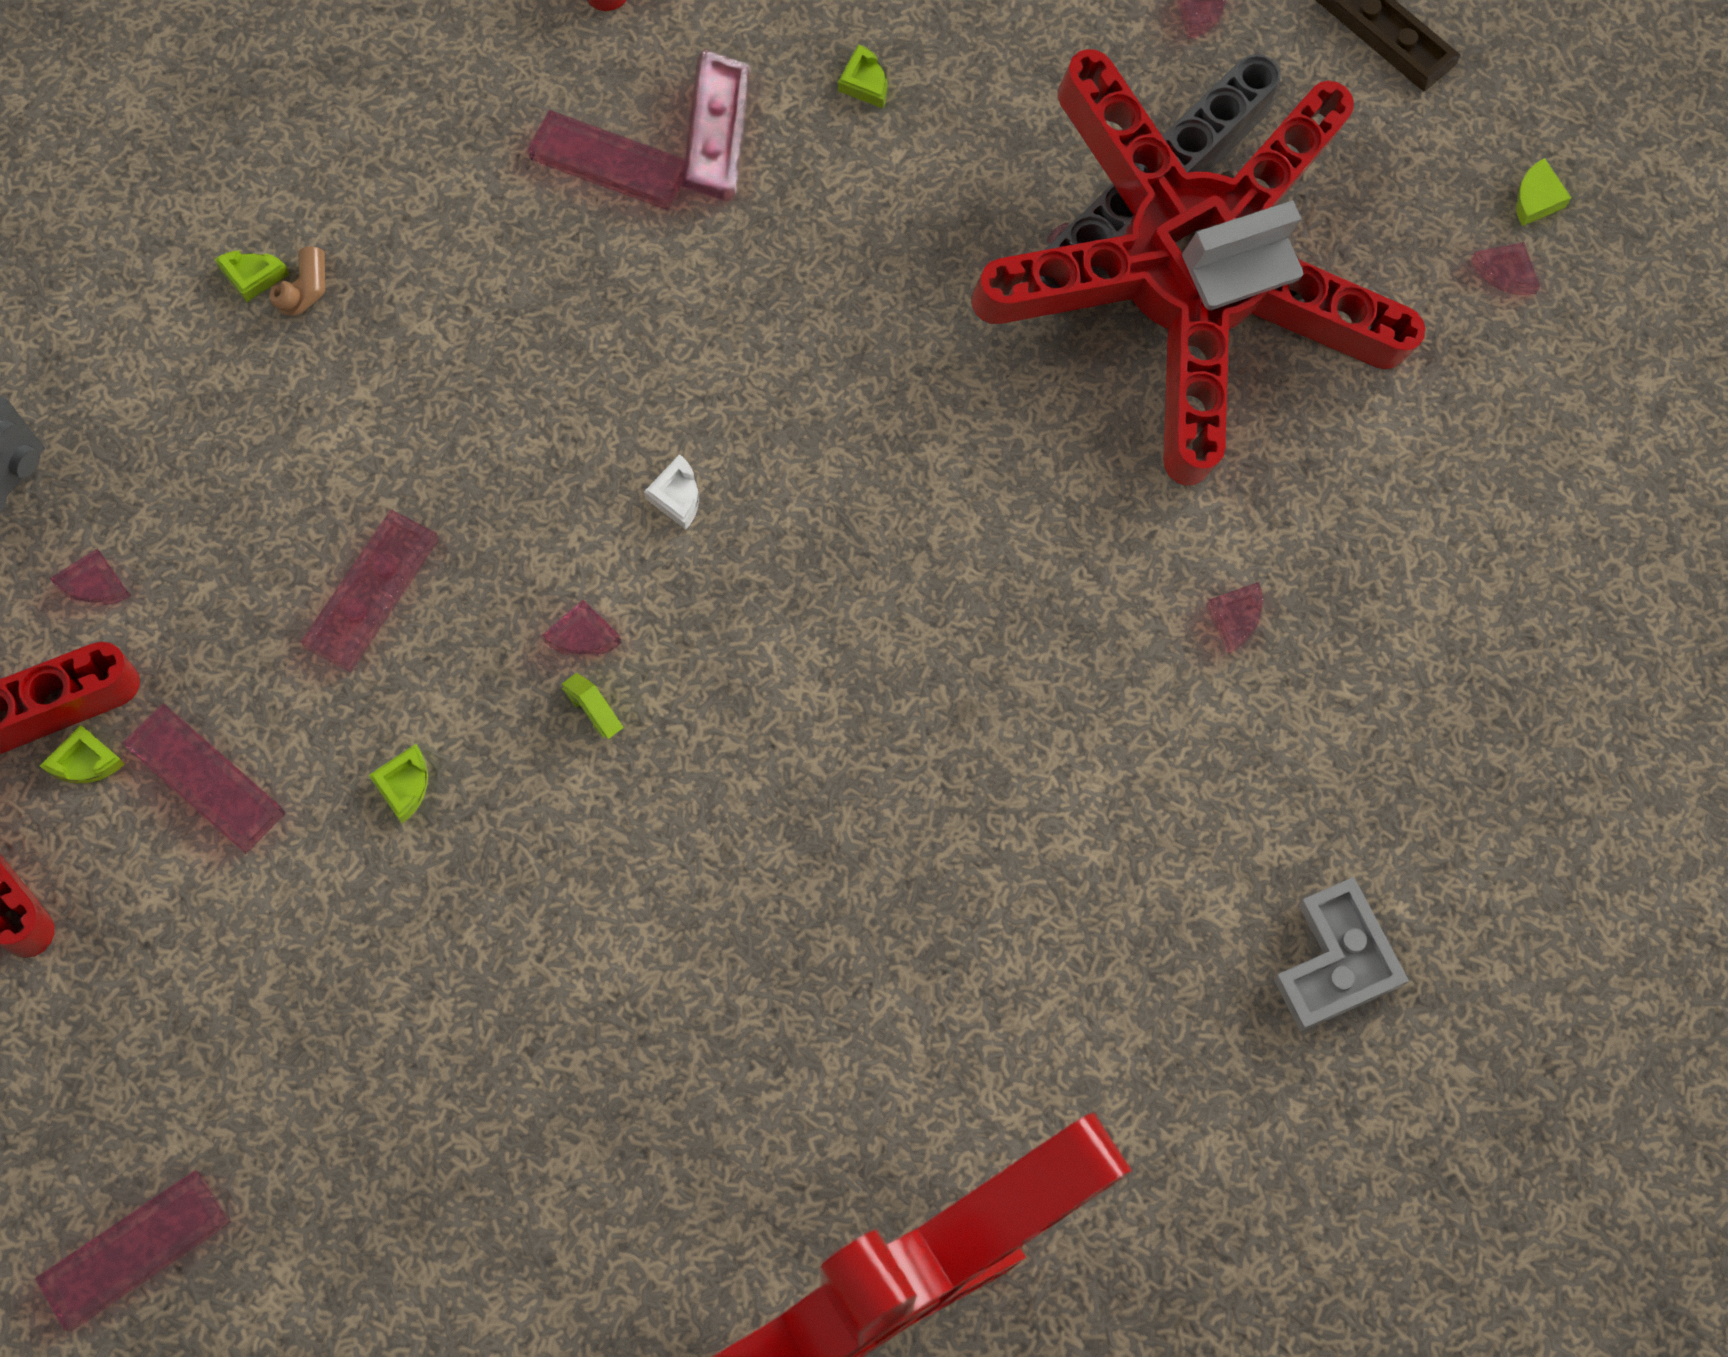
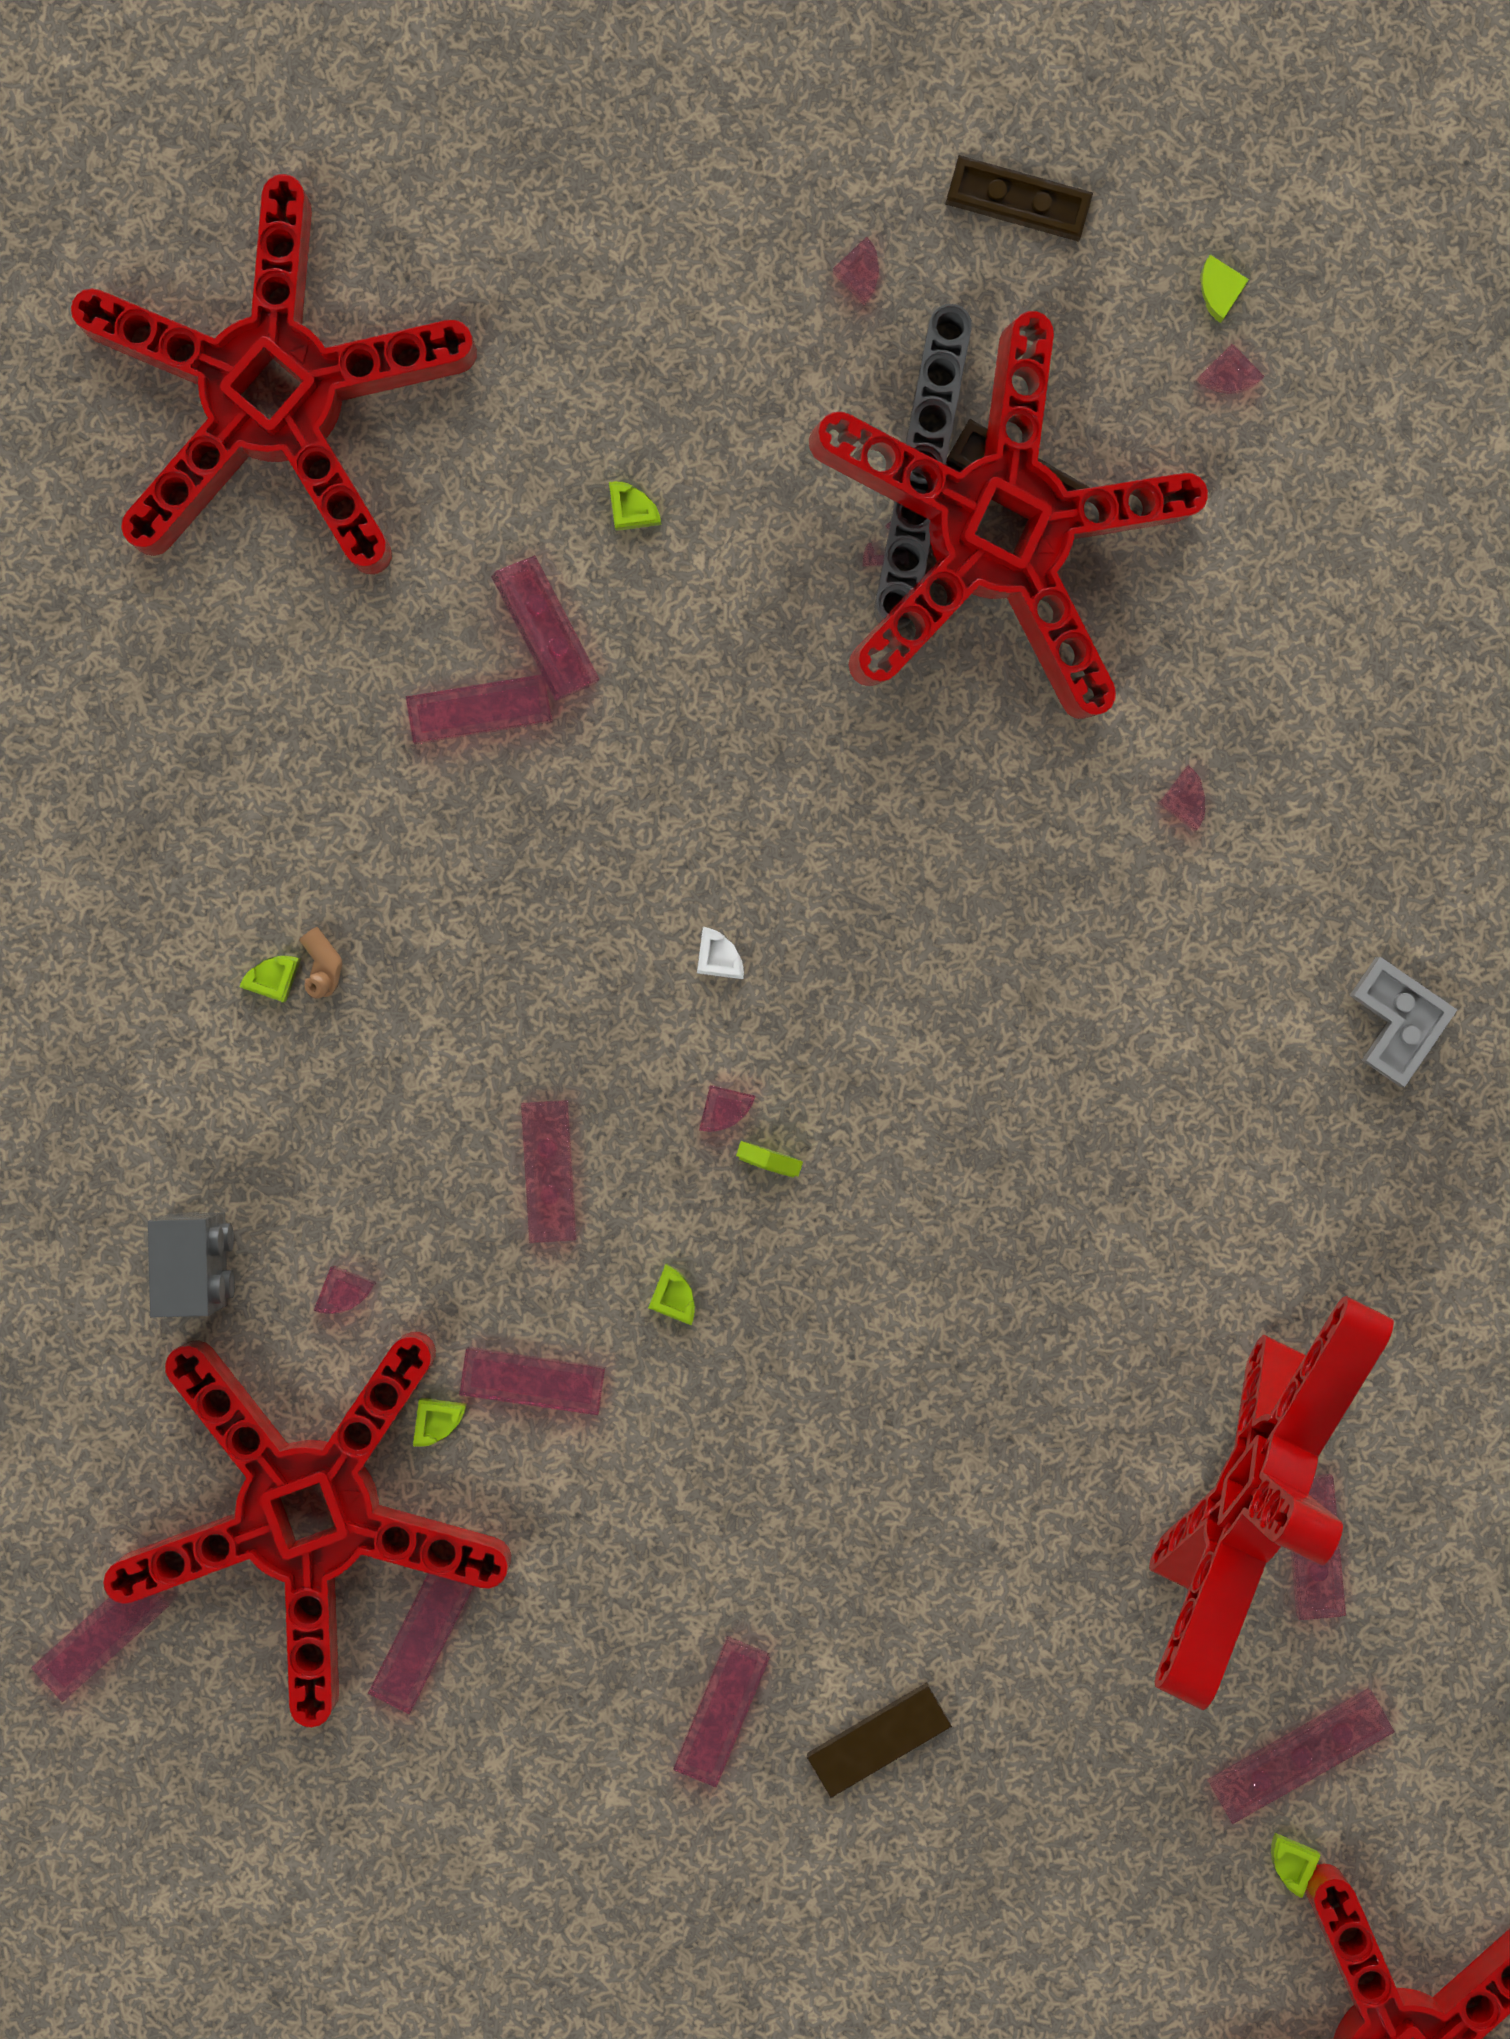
camera: 35 degrees left, 20 degrees up
(1244, 256) = (1046, 522): light grey panel -> none

